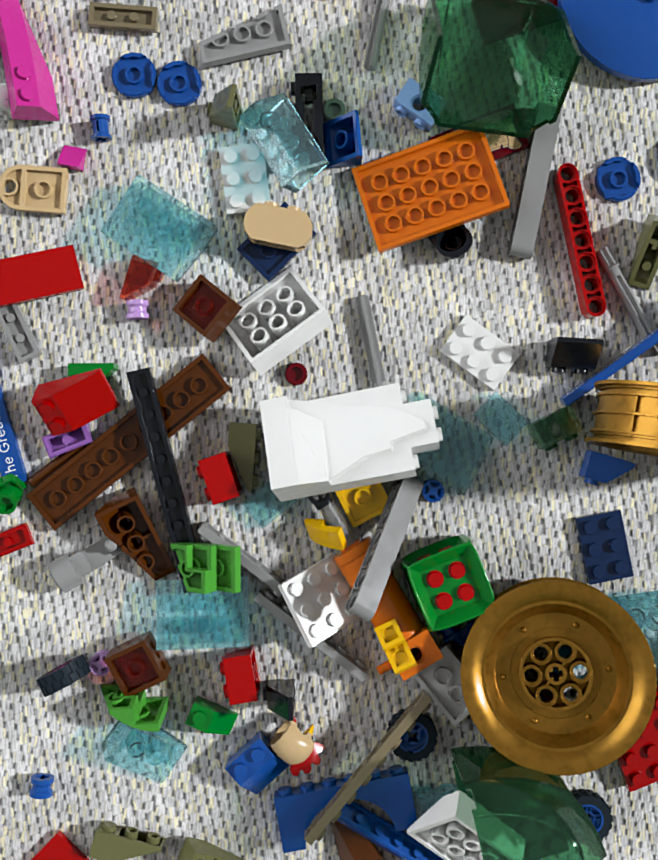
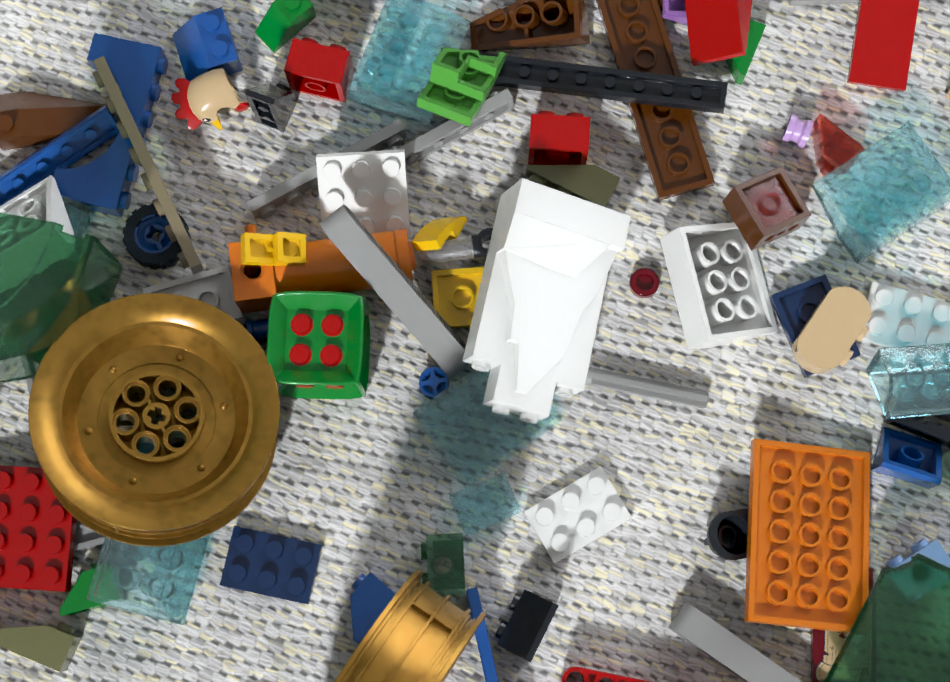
camera: 110 degrees right, 10 degrees down
(266, 506) = (498, 178): clear light blue plate -> none

